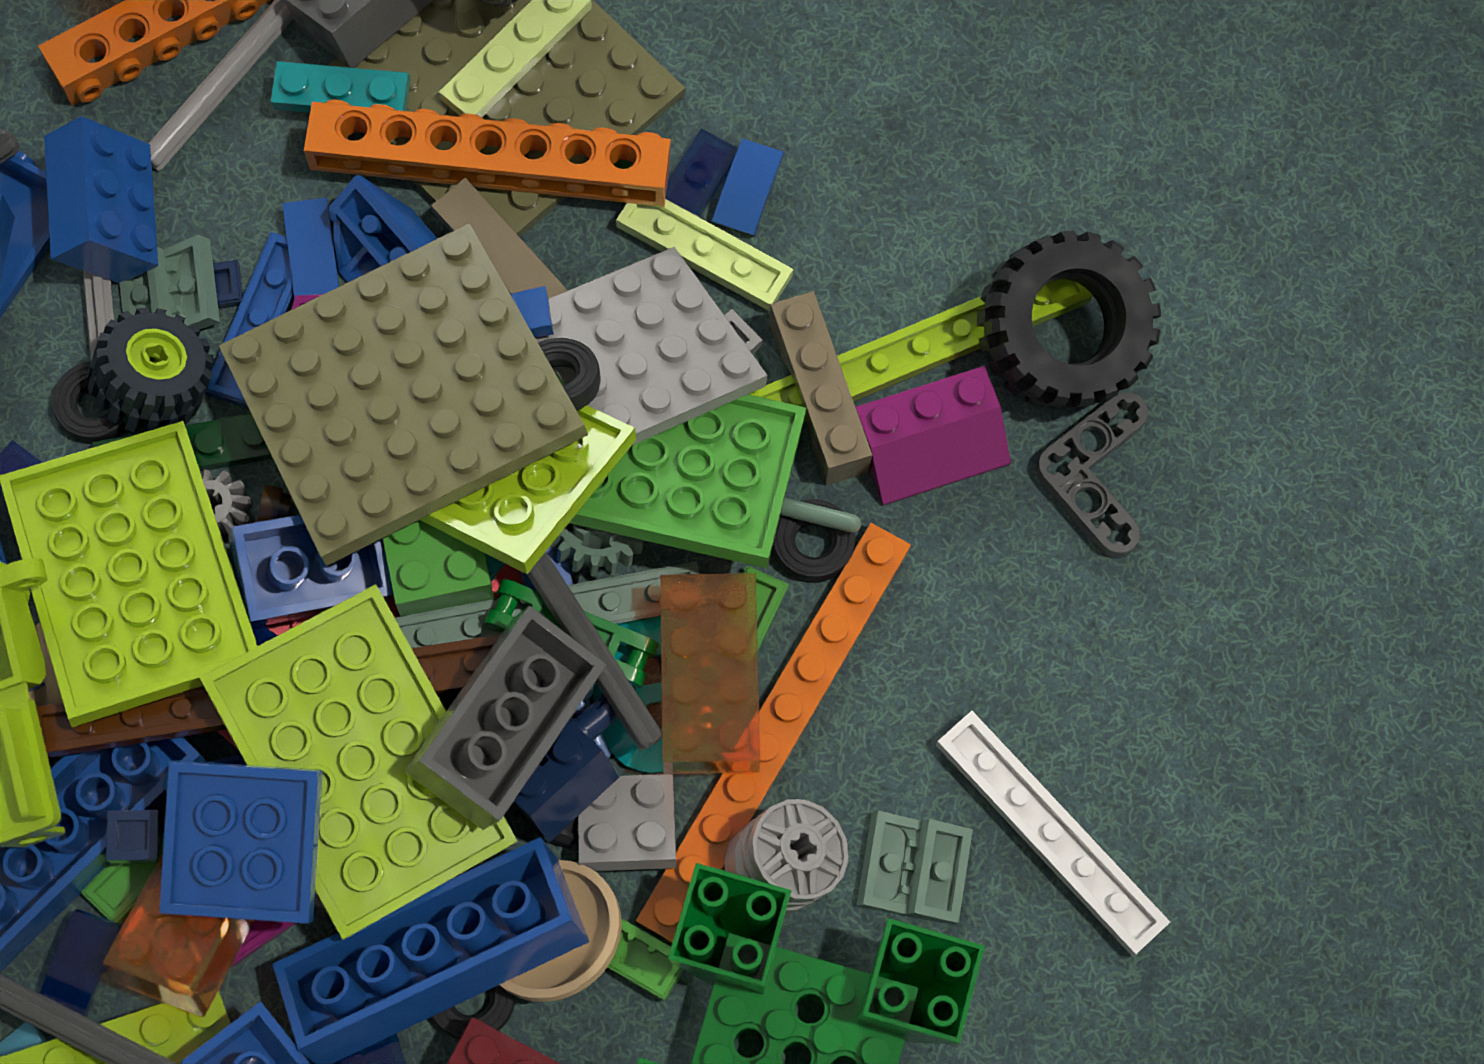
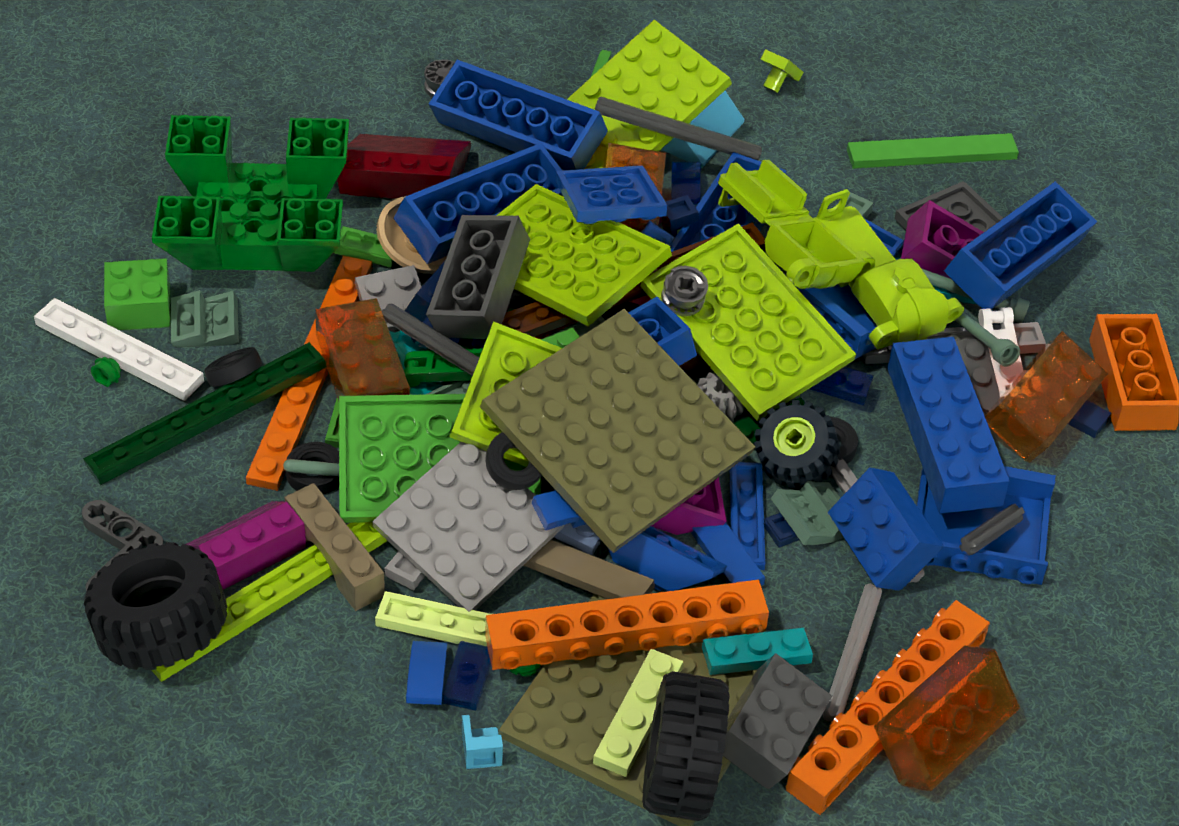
camera: 165 degrees right, 25 degrees down
(209, 603) = (693, 294): none -> flat silver wheel
(710, 74) = (481, 746): none -> medium azure panel
(764, 851) = (286, 285): light grey wheel -> none
(907, 759) = (232, 366): none -> black tyre
(941, 669) = (204, 413): none -> dark green tile
(1016, 922) = (137, 294): none -> bright green brick
(1074, 792) = (106, 371): none -> green plate

